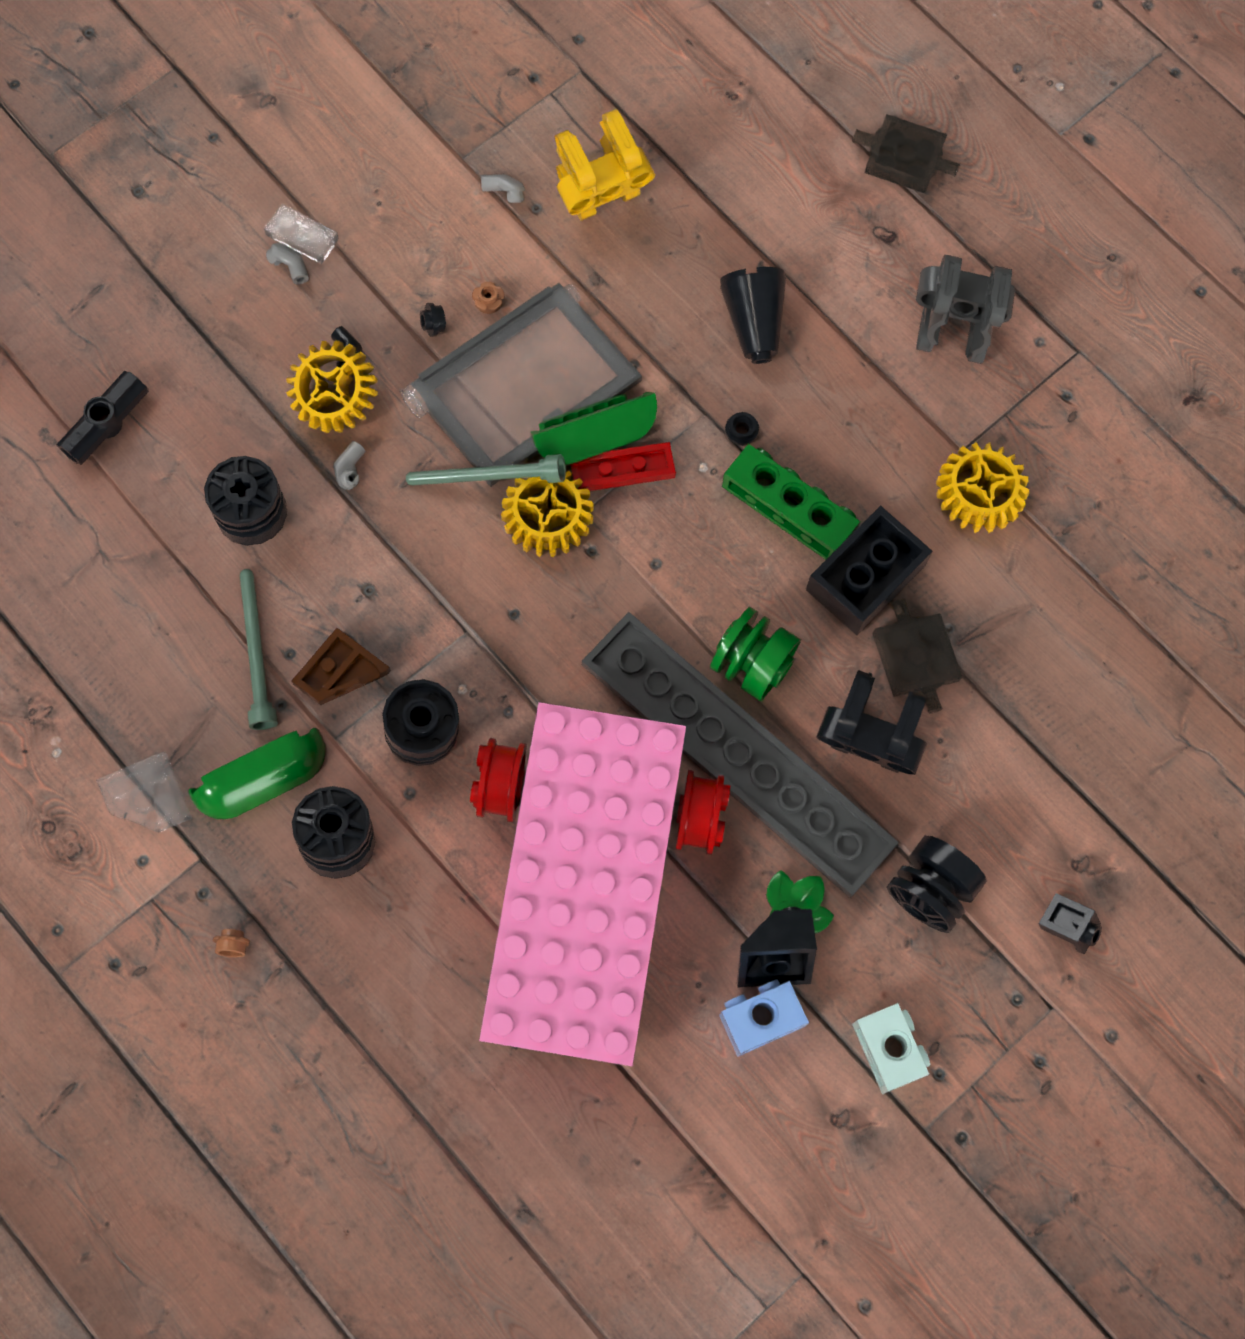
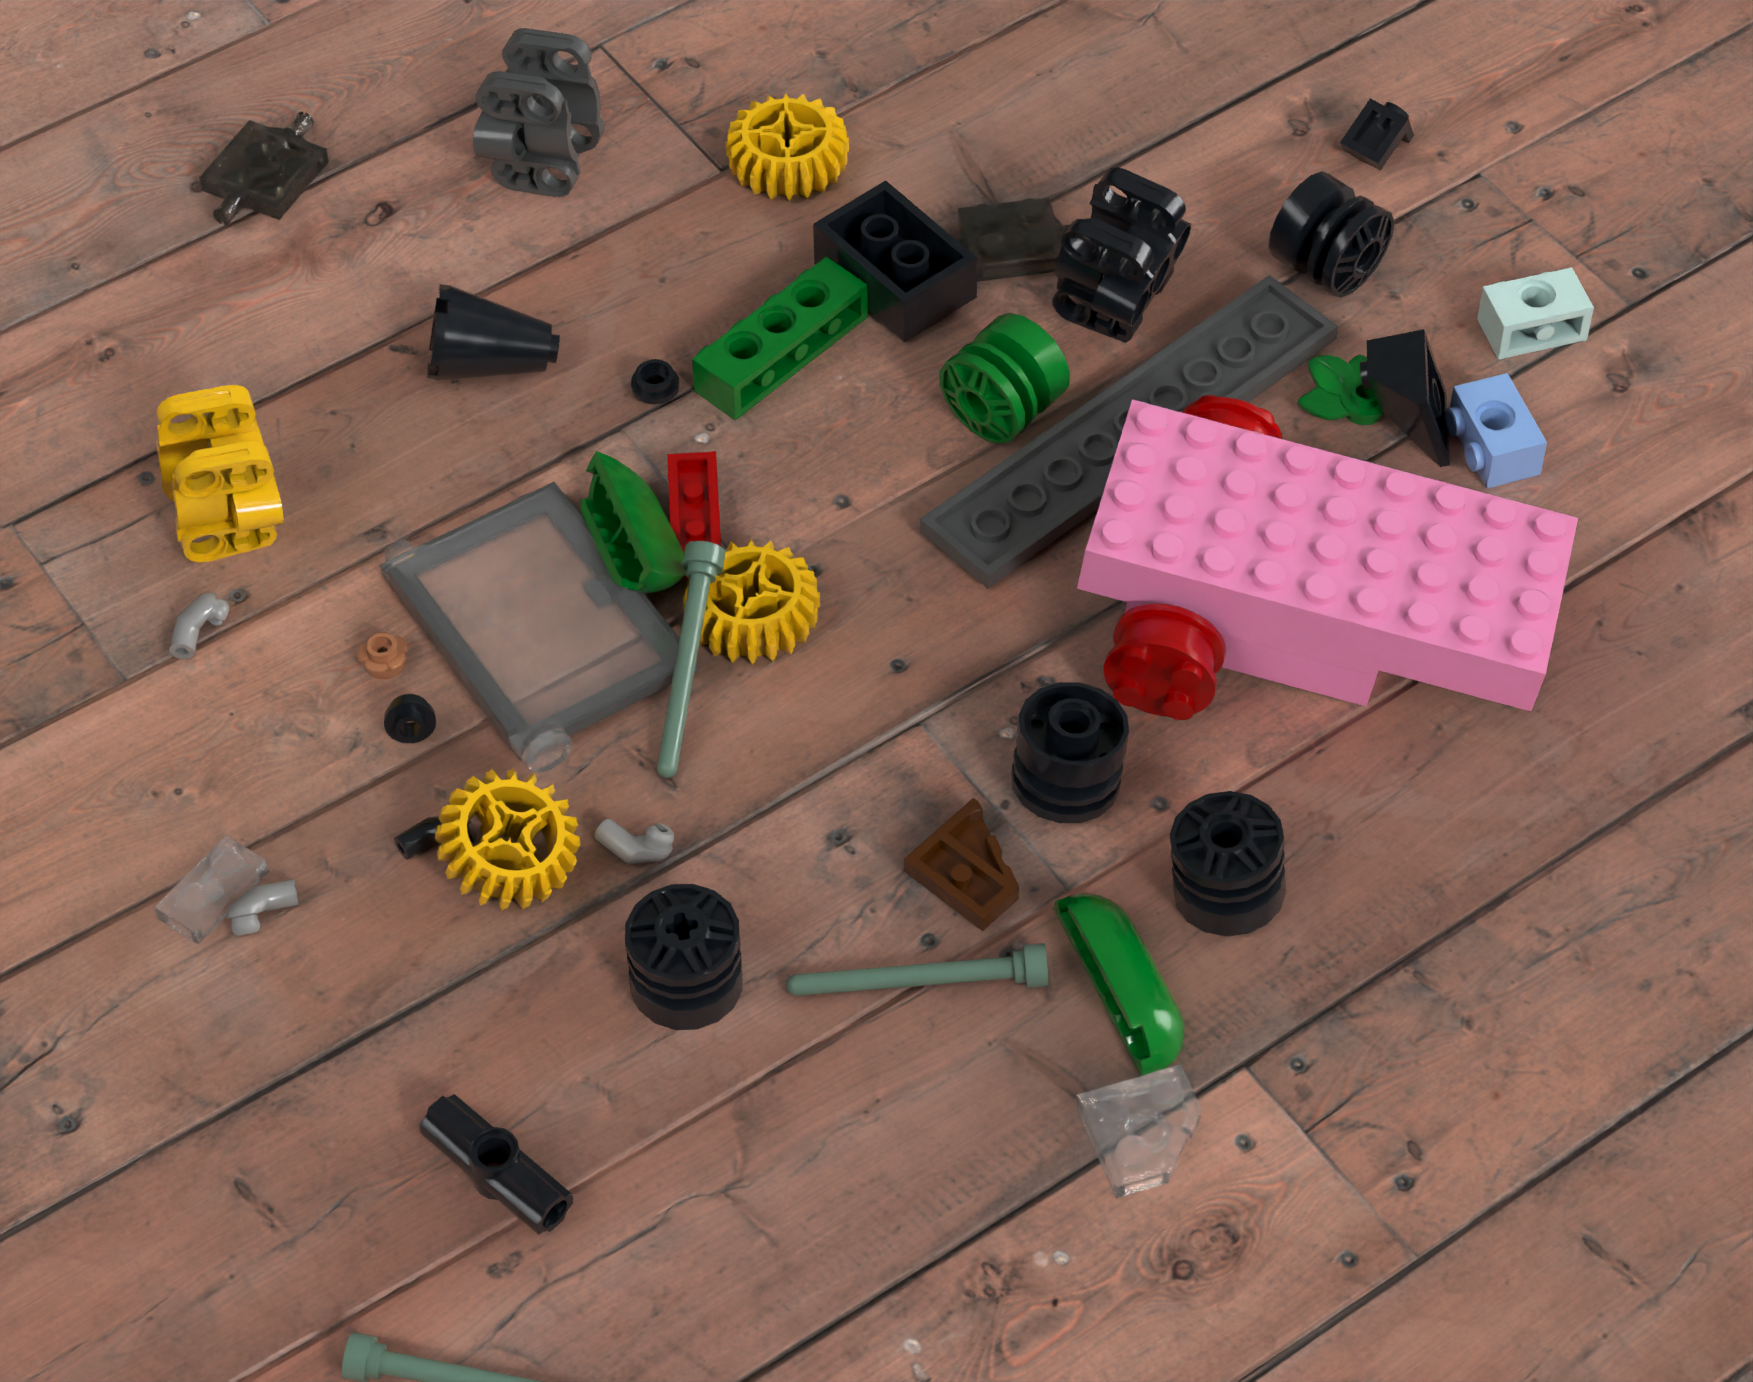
camera: 80 degrees left, 20 degrees down
(231, 943) = (1380, 1017): nougat plate -> none

